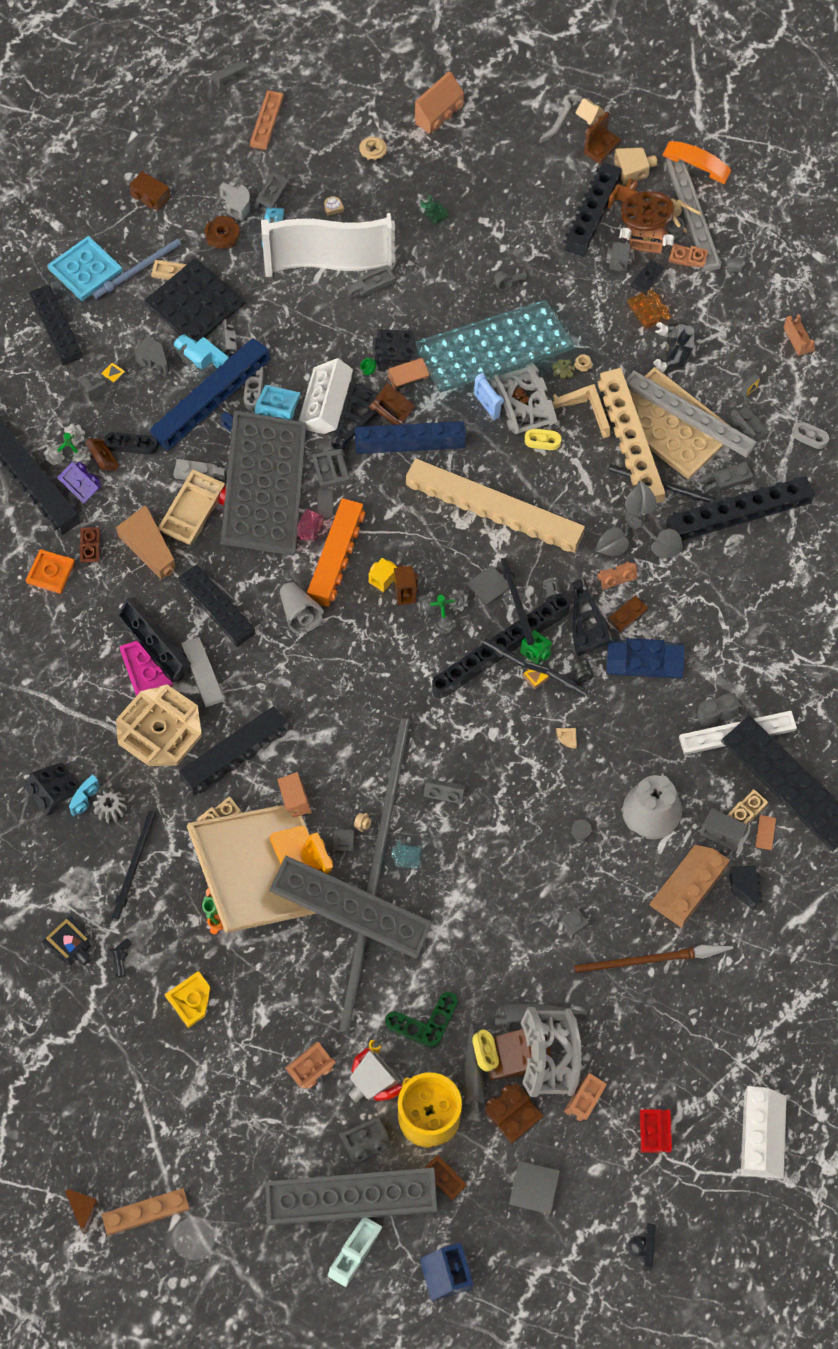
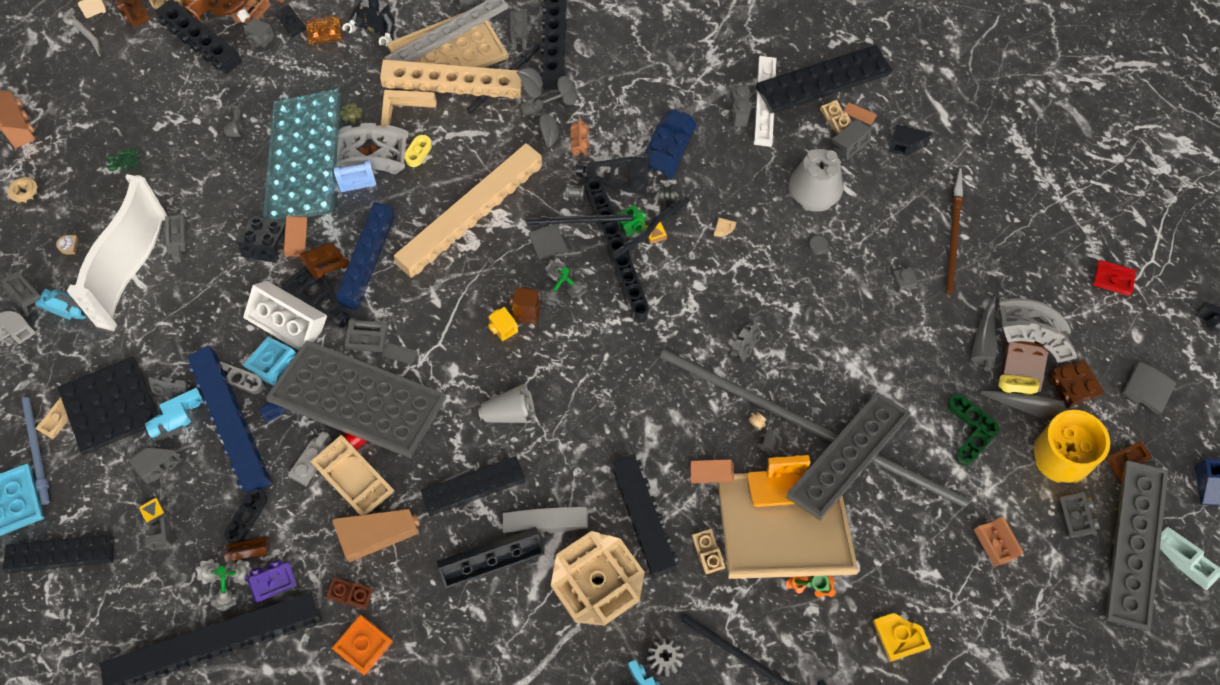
camera: 70 degrees left, 0 degrees up
(141, 668) = (522, 580): dark pink wing -> none
(225, 240) = (46, 361): reddish brown plate -> none
(309, 525) = (423, 370): clear pink brick -> none
(335, 552) = (461, 357): orange brick -> none
(368, 366) = (264, 268): green plate -> none
(373, 1077) = (1022, 487): torso -> none
(406, 856) = (802, 394): clear light blue bracket -> none
(585, 360) = (353, 95): tan plate -> none
(585, 1097) = (1079, 320): nougat hinge -> none
(628, 614) = (620, 142): reddish brown plate -> none
(690, 884) = (896, 179): medium nougat slope -> none
(763, 1133) = (1131, 203): white slope -> none

